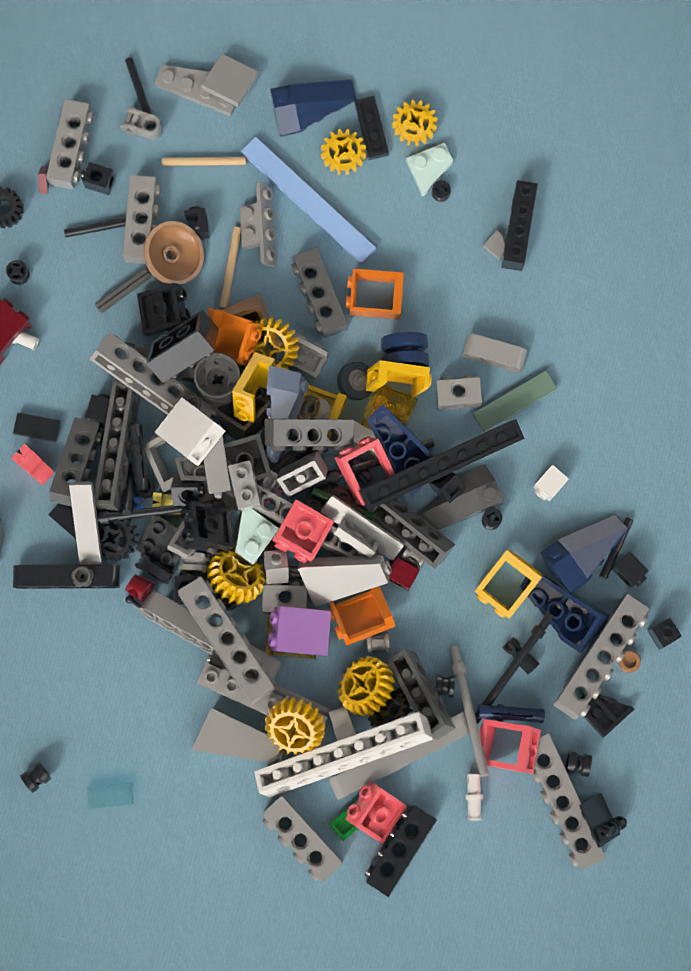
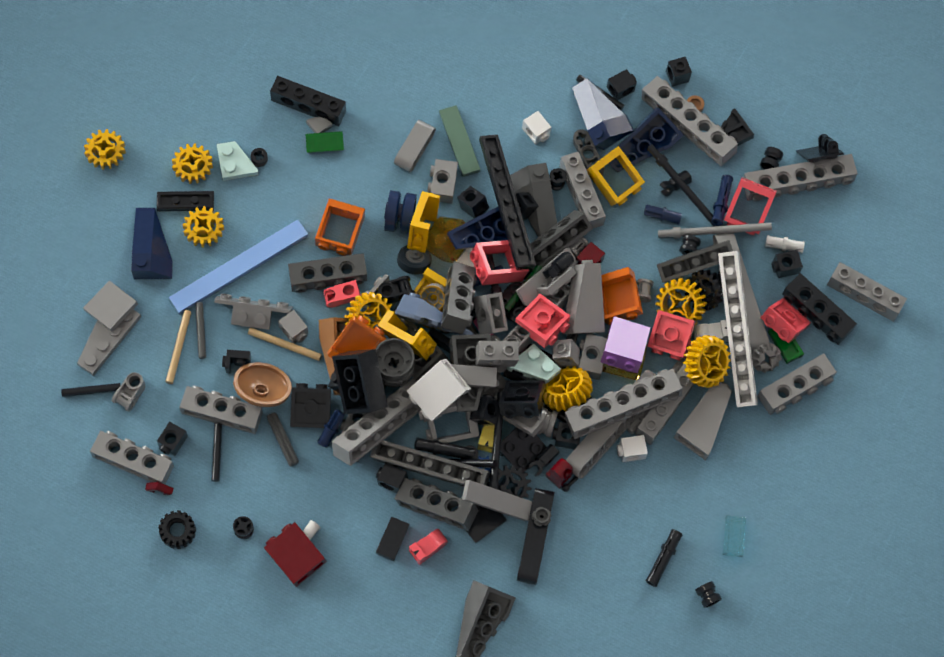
camera: 85 degrees left, 10 degrees down
(66, 720) = (664, 557): none -> black pin
(139, 335) = (331, 428): none -> dark blue axle
(186, 663) = (632, 448): none -> white brick
(227, 179) = (200, 330): none -> dark grey bar
(248, 271) = (293, 327): none -> light grey brick
(298, 315) = (341, 294): none -> coral leg
(312, 371) = (397, 288): none -> black piece
(325, 681) = (671, 335): none -> coral plate
(333, 799) = (758, 357): none -> light grey gear
(375, 537) = (559, 265): none -> black bar
(401, 34) = (107, 151): none -> yellow gear
(434, 904) = (866, 291): none -> light grey brick
(435, 436) = (473, 202): none -> black brick
(457, 808) = (792, 259): none -> black brick
(475, 255) = (324, 141): none -> green tile
(478, 647) = (662, 214): none -> dark blue axle
(483, 549) = (582, 189): none -> light grey brick
(544, 534) = (589, 146): none -> dark grey beam

